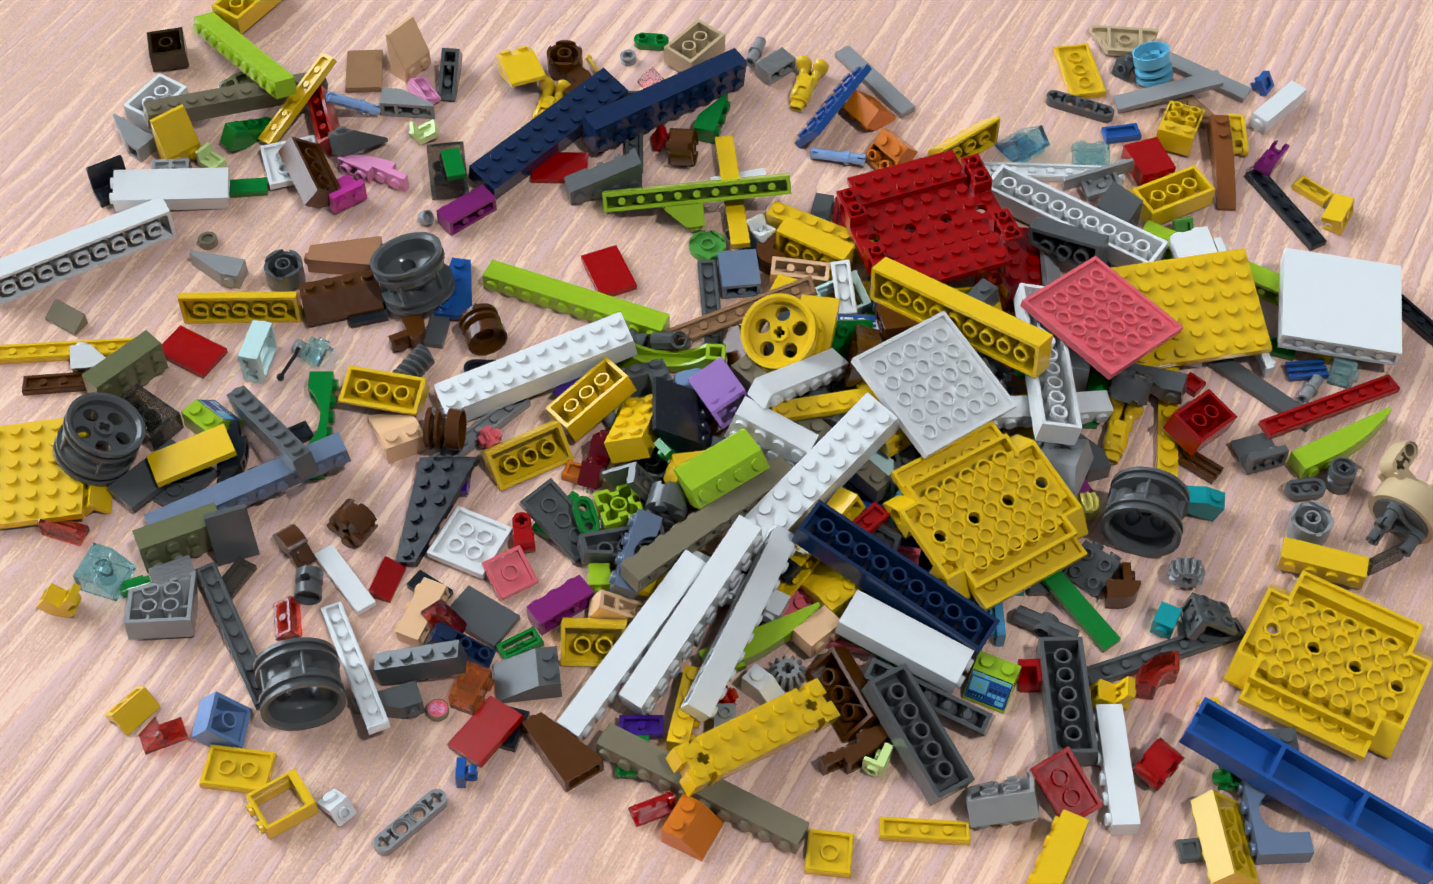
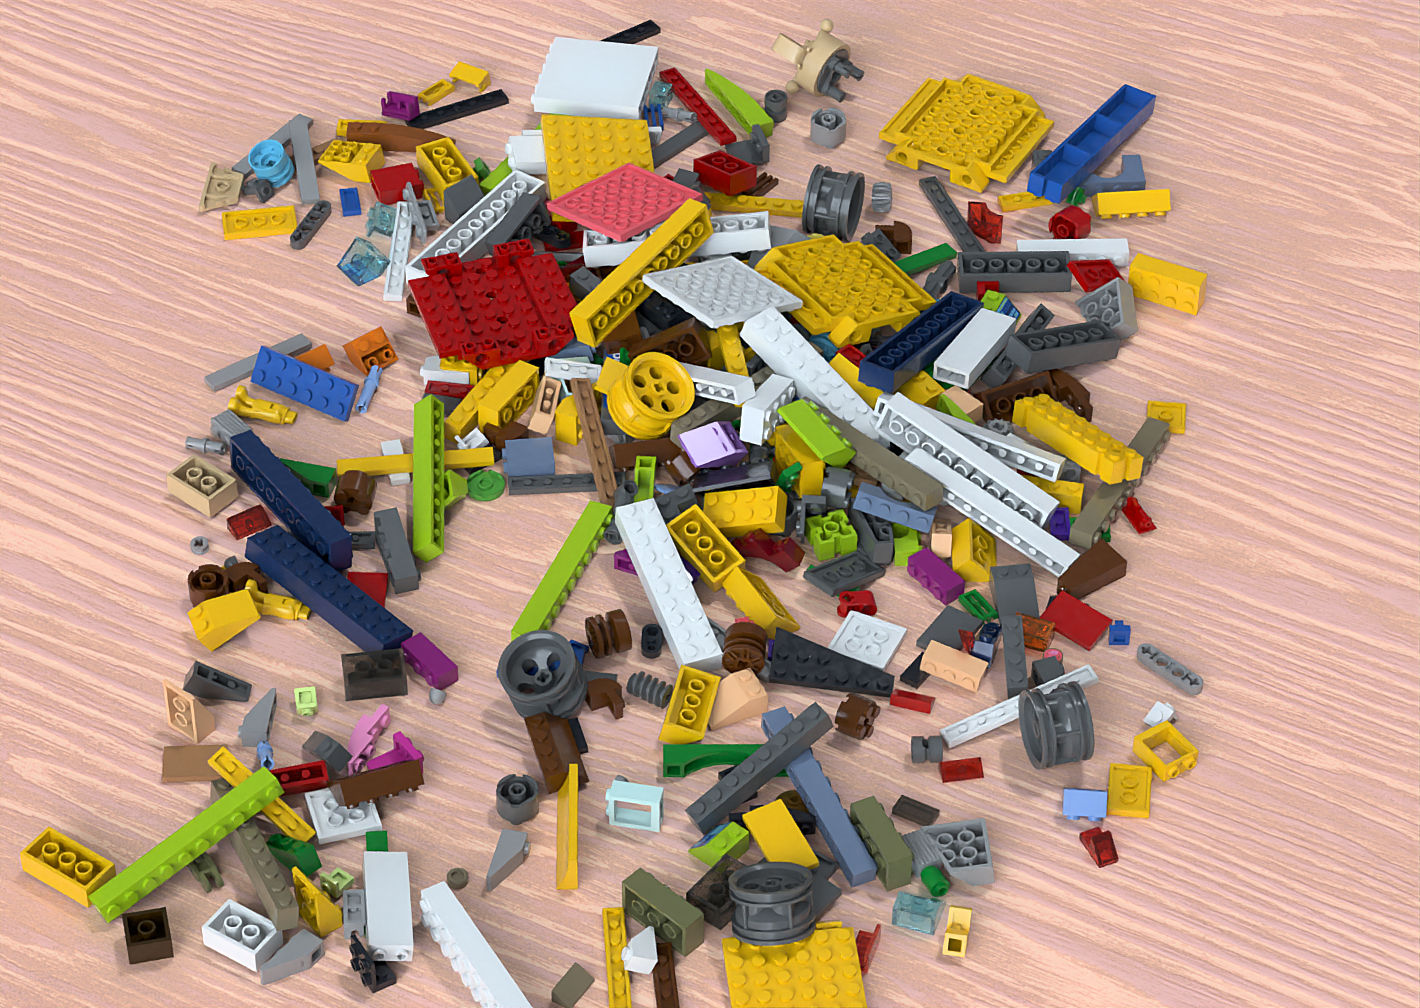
camera: 90 degrees left, 10 degrees down
(133, 709) = (1072, 871): yellow panel -> none
(192, 351) = (619, 866): red tile -> none
(230, 626) = (987, 800): dark grey tile -> none
(231, 534) = (881, 792): dark grey tile -> none
(295, 544) = (877, 762): reddish brown brick -> none
(316, 350) = (626, 767): clear light blue bracket -> none
(342, 256) = (495, 750): nougat slope -> none
(345, 580) = (919, 726): white tile -> none
(422, 88) = (235, 710): bright pink slope -> none
(453, 164) = (380, 656): green tile -> none
(509, 572) = (902, 610): coral tile -> none
(571, 472) = (777, 575): orange tile -> none
(586, 517) = (843, 552): green plate -> none
(609, 271) = (519, 555): red tile -> none
(650, 41) = (175, 528): green plate -> none
(691, 827) = (1155, 495): orange slope -> none
(879, 764) = (1082, 377): yellowish green bracket -> none
(924, 830) = (1138, 363): yellow tile -> none
(972, 140) = (365, 295): yellow slope -> none
(1108, 693) = (1006, 238): yellow brick -> none
(1165, 620) = (927, 216): teal brick -> none
(1189, 850) = (1138, 225): dark grey tile -> none
(1201, 612) = (926, 192): dark grey bracket -> none
(1206, 502) = (802, 182): teal slope -> none
(1263, 83) = (295, 104): blue tile -> none
(1277, 107) = (328, 98): white brick -> none
(1304, 489) = (786, 130): dark grey plate -> none
(1323, 562) = (866, 125): yellow brick -> none
(1384, 560) = (858, 94): clear smoke tile -> none

